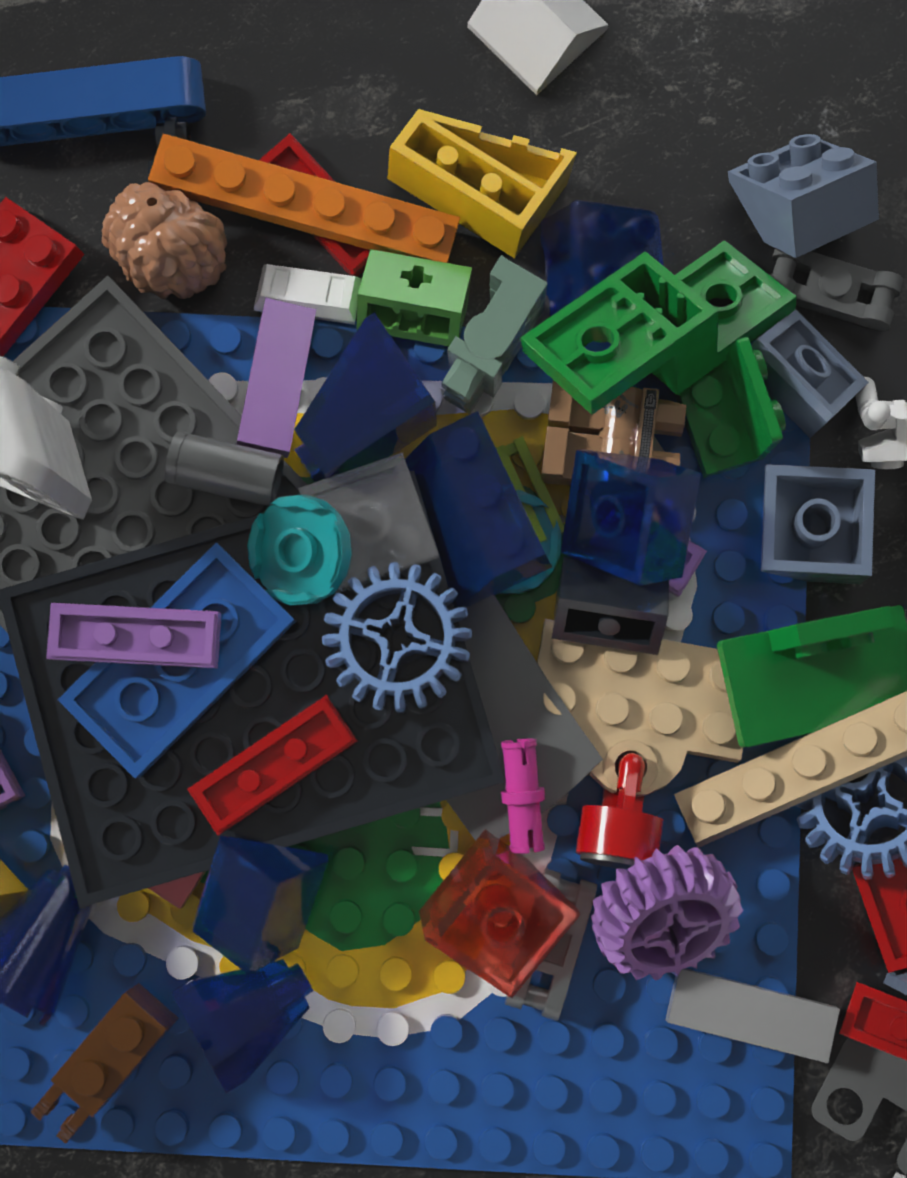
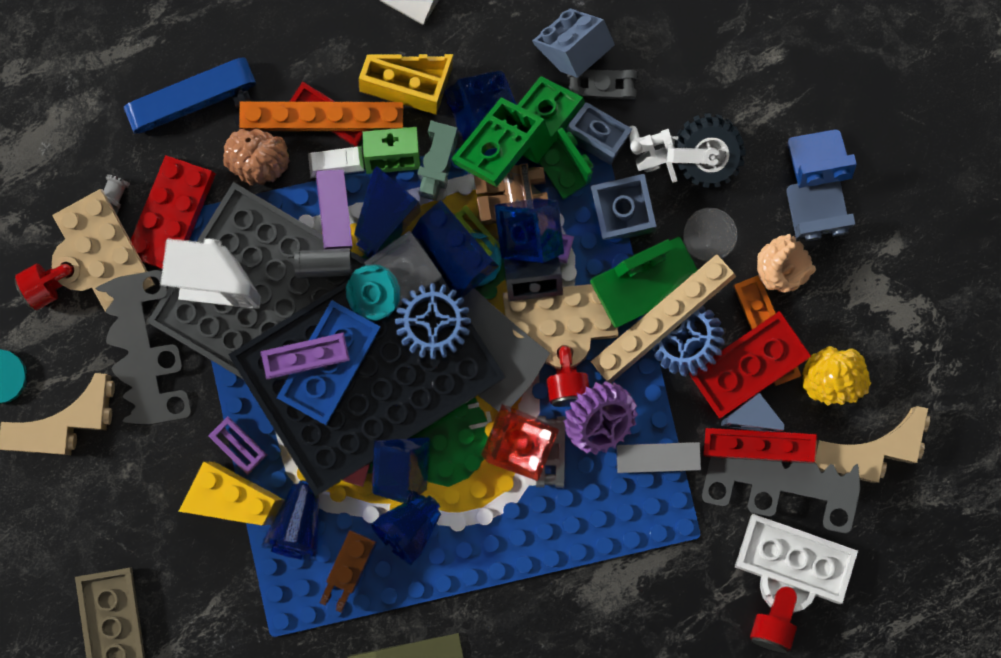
camera: 20 degrees left, 0 degrees up
(272, 765) = (390, 400): red tile -> none
(523, 795) = (515, 381): dark pink pin -> none

